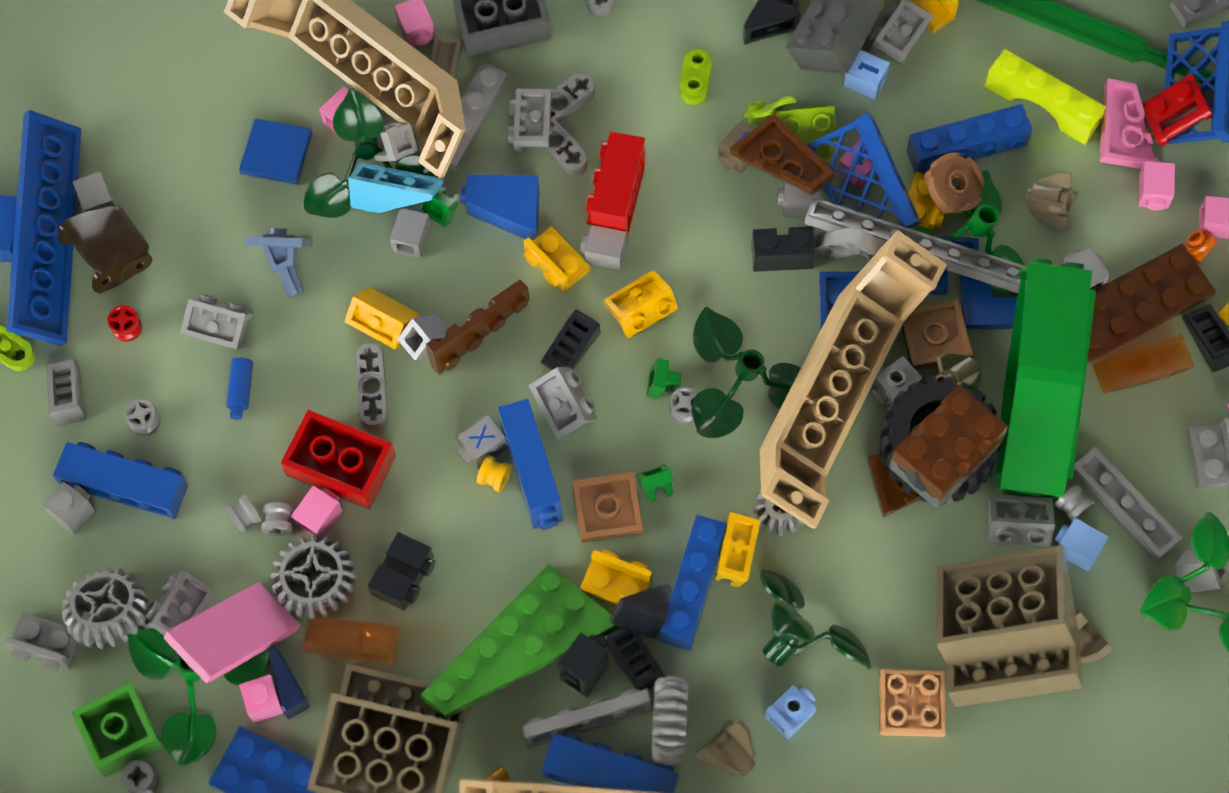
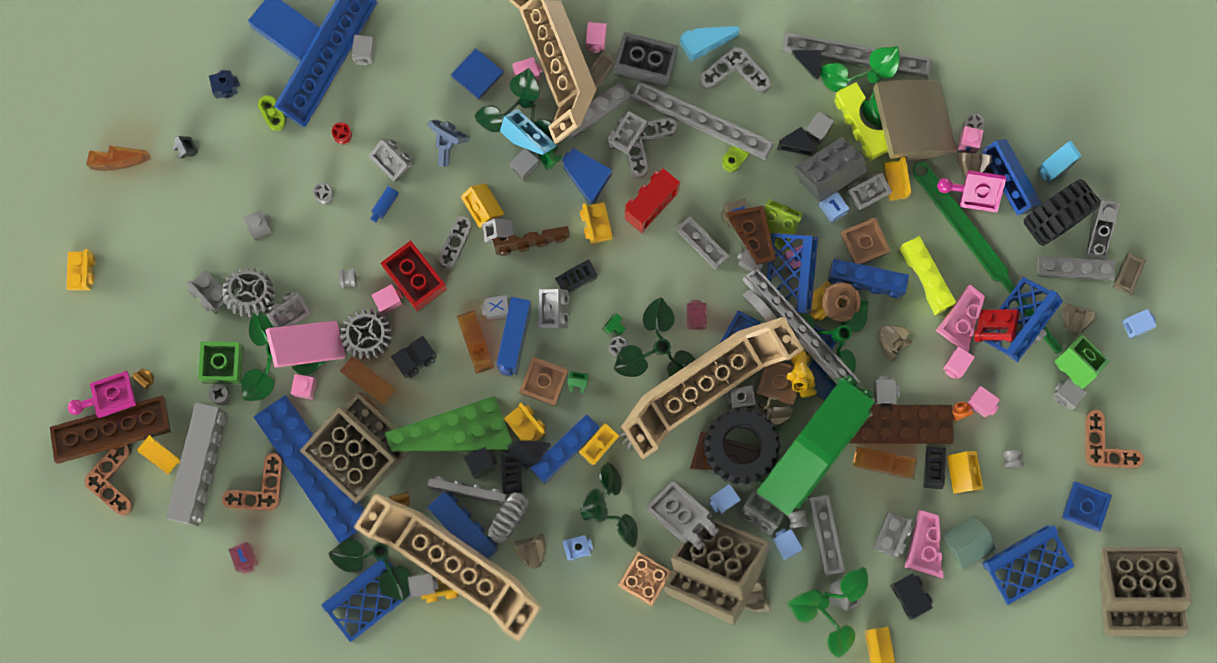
camera: 25 degrees right, 10 degrees up
(69, 409) = (286, 166): light grey slope -> none
(108, 244) = (353, 83): dark brown piece -> none
(121, 479) = (293, 223): blue brick -> none
(277, 519) = (364, 291): light grey wheel -> none
(289, 692) = (321, 387): dark blue slope -> none
(398, 142) = (542, 109): light grey panel -> none
(478, 505) = (475, 342): none -> clear orange slope
(494, 473) = (493, 329): yellow wheel -> none
(604, 247) = (626, 231): light grey brick -> none
(623, 54) = (702, 120): none -> light grey tile
(641, 303) = (628, 274): yellow bracket -> none
(717, 209) = (702, 243): none -> light grey plate
(759, 112) = (760, 197): lime plate -> none
(767, 307) = (696, 315): none -> clear pink brick
(783, 252) = (723, 288): black brick -> none
(914, 580) = (681, 514): none -> light grey tile
(935, 96) = (865, 242): none -> medium nougat plate
(948, 447) = (737, 456): reddish brown piece -> none
(957, 531) = (724, 500): none -> light blue brick
(962, 307) = (801, 376): none -> yellow animal

